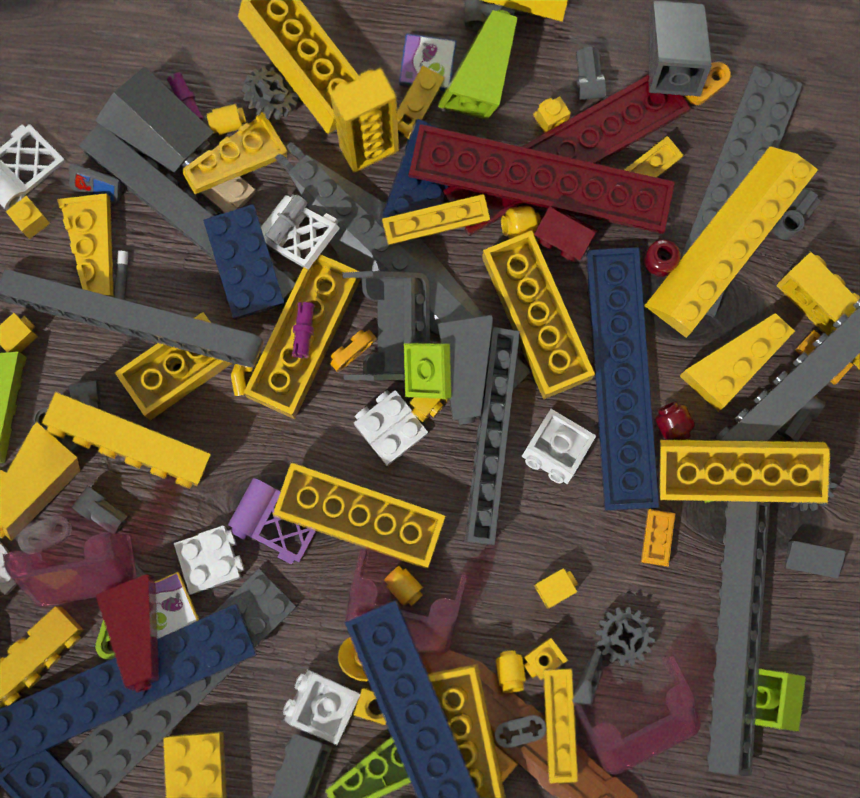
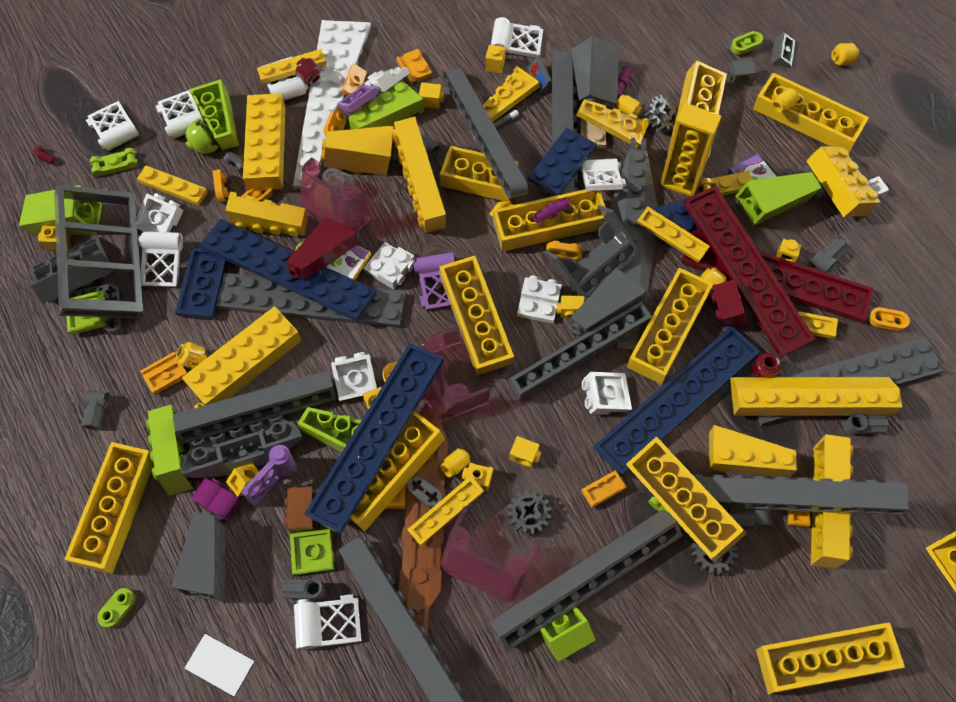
camera: 55 degrees right, 15 degrees down
(96, 508) = (372, 194): dark grey piece -> none
(286, 219) = (603, 164): light grey axle -> none
(404, 586) = (457, 370): yellow brick -> none
(427, 370) = (586, 285): lime tile -> none
(589, 680) = (487, 506): dark grey slope -> none
(675, 421) = (680, 445): dark red head -> none
(678, 48) = (890, 284): slope -> none
(814, 559) = (672, 593): dark grey slope -> none

